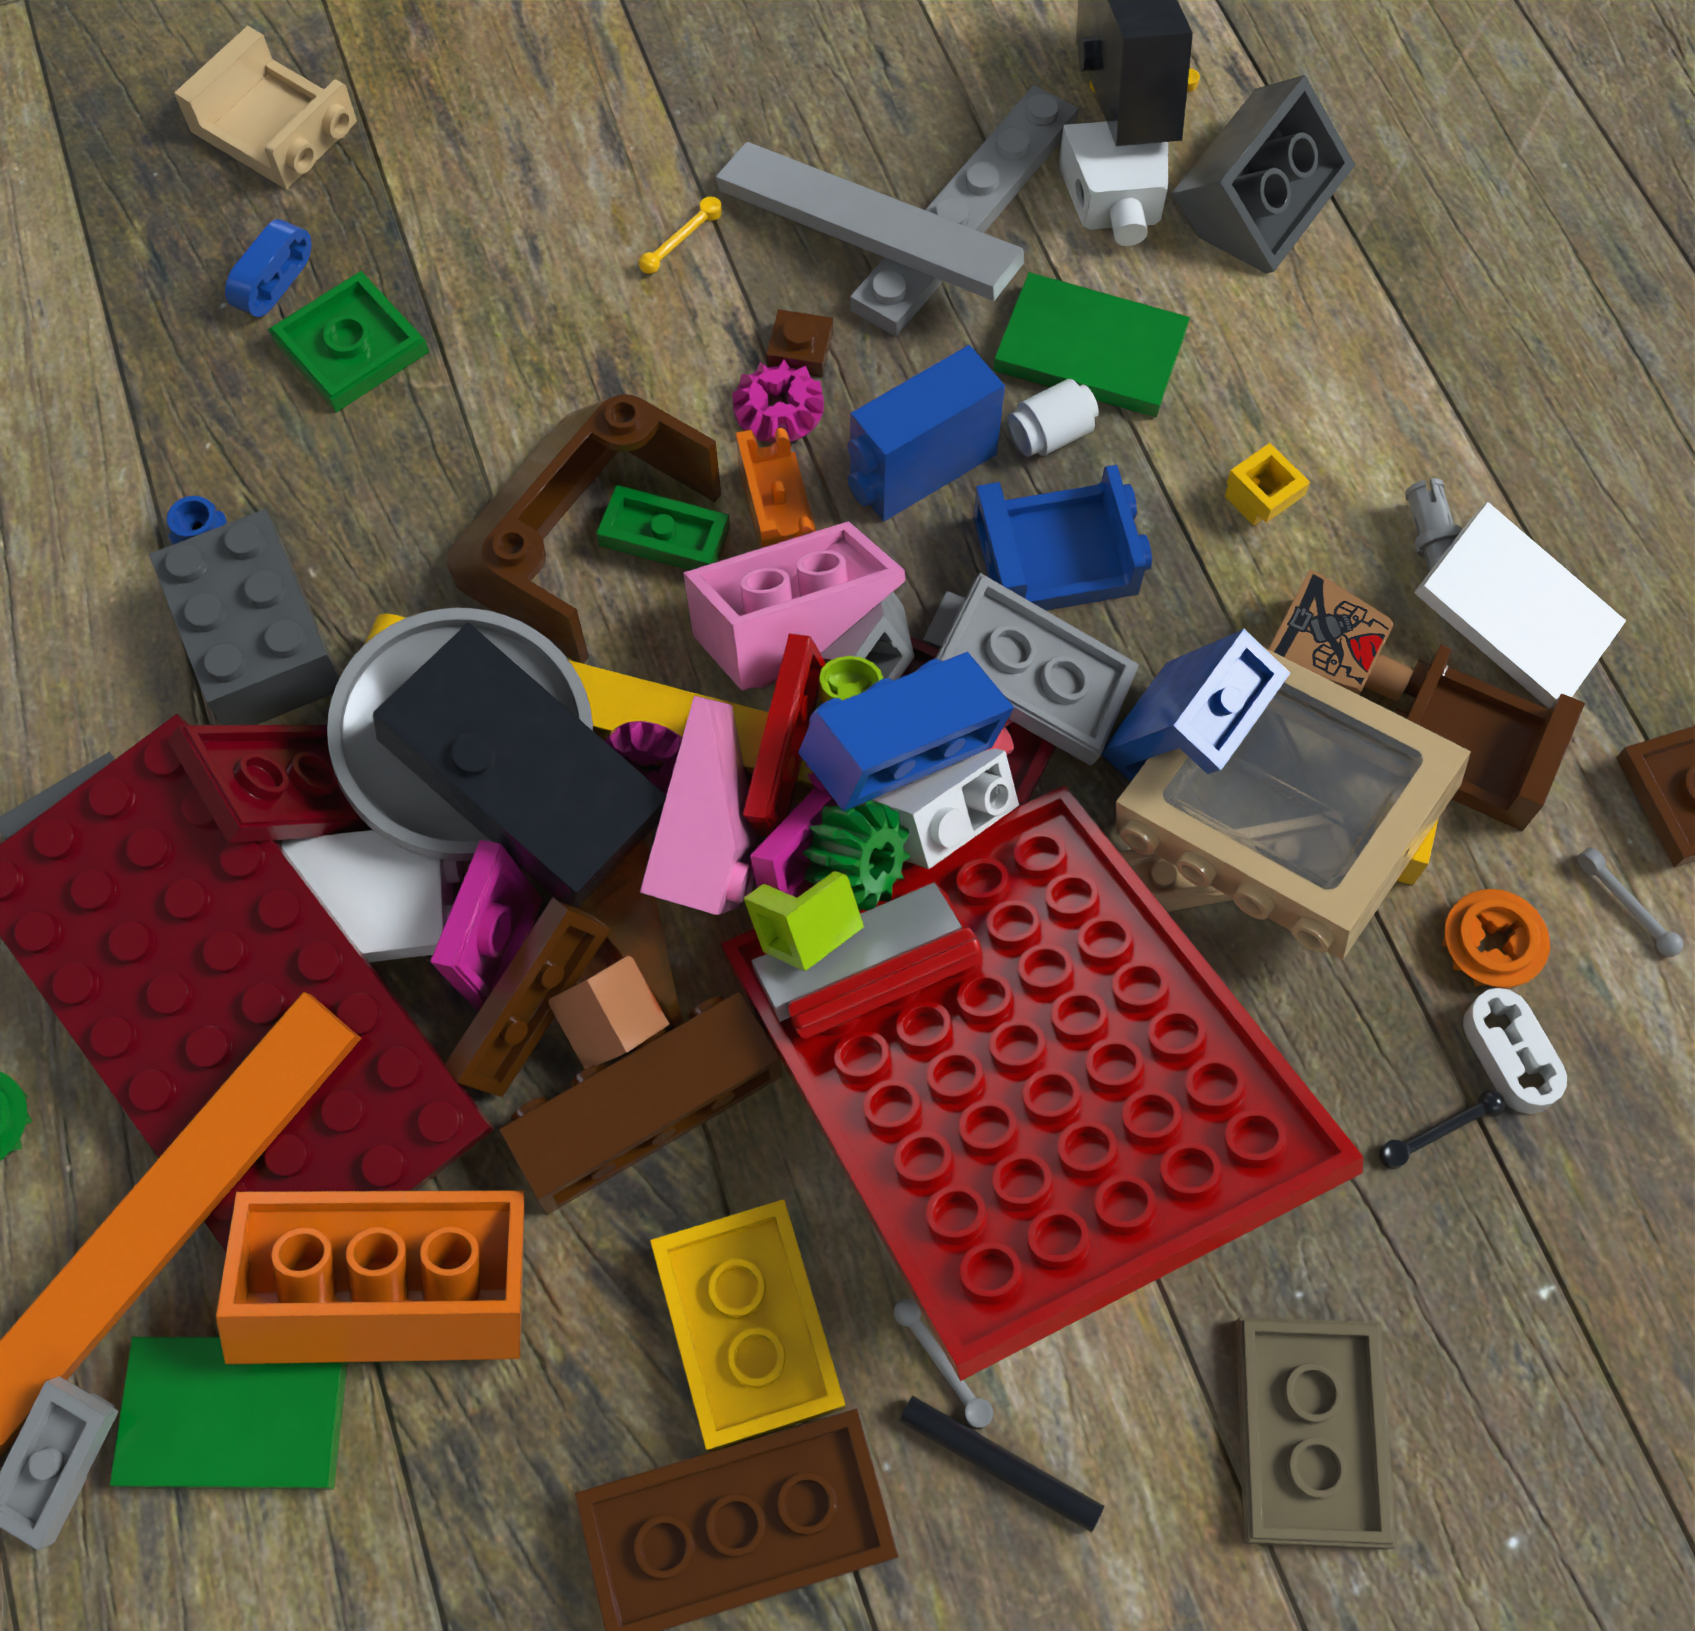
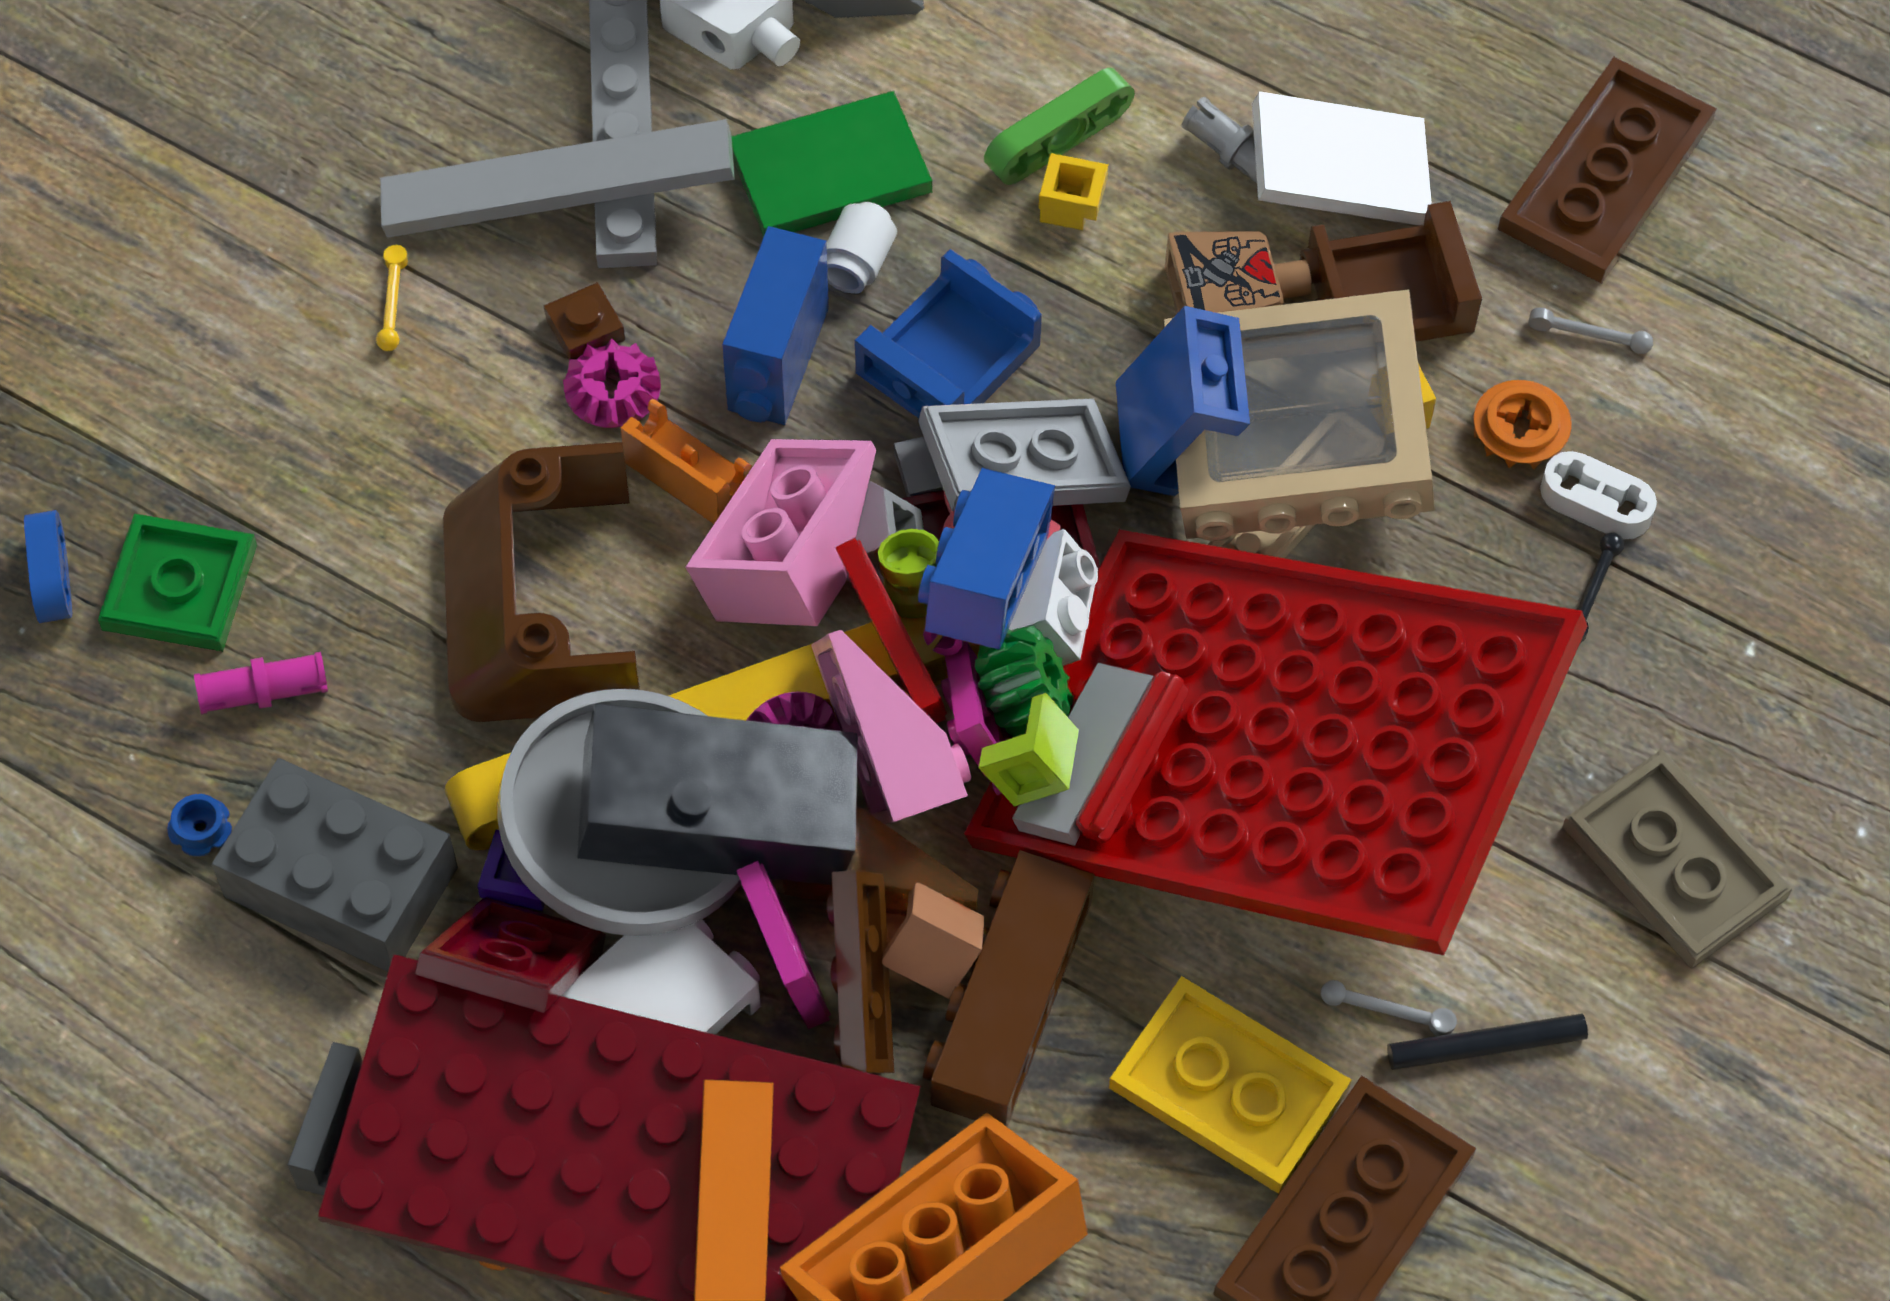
camera: 40 degrees left, 5 degrees down
(329, 450) = (260, 683): none -> dark pink pin
(662, 529) = (617, 552): green plate -> none
(1333, 429) = (1059, 125): none -> bright green beam

